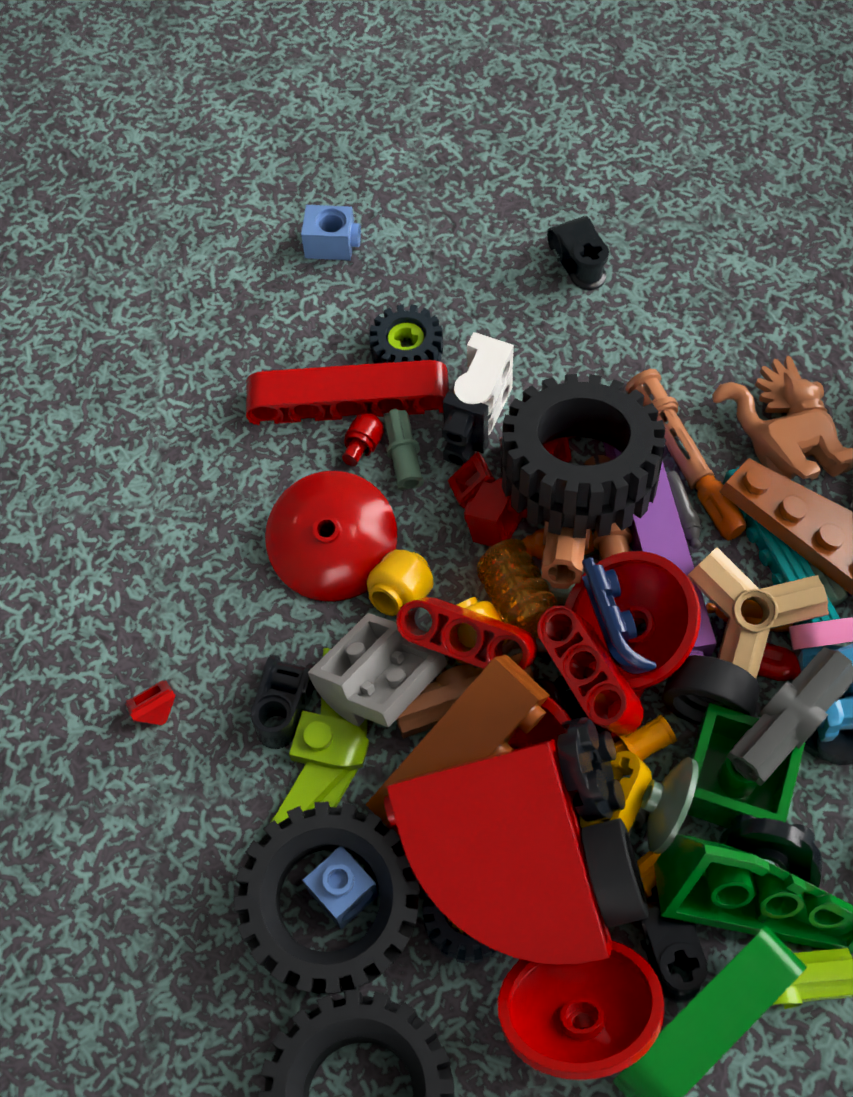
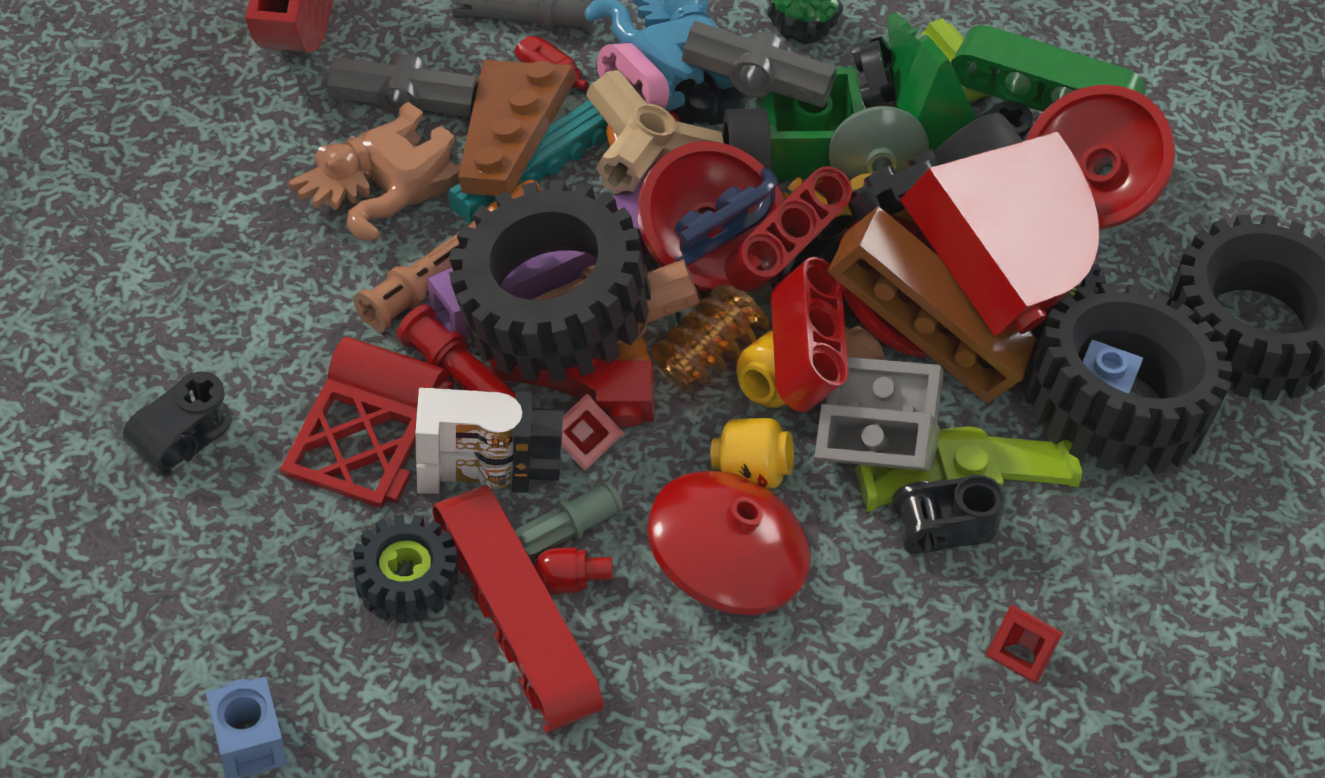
camera: 120 degrees left, 10 degrees down
(578, 356) = (373, 382): none -> red piece

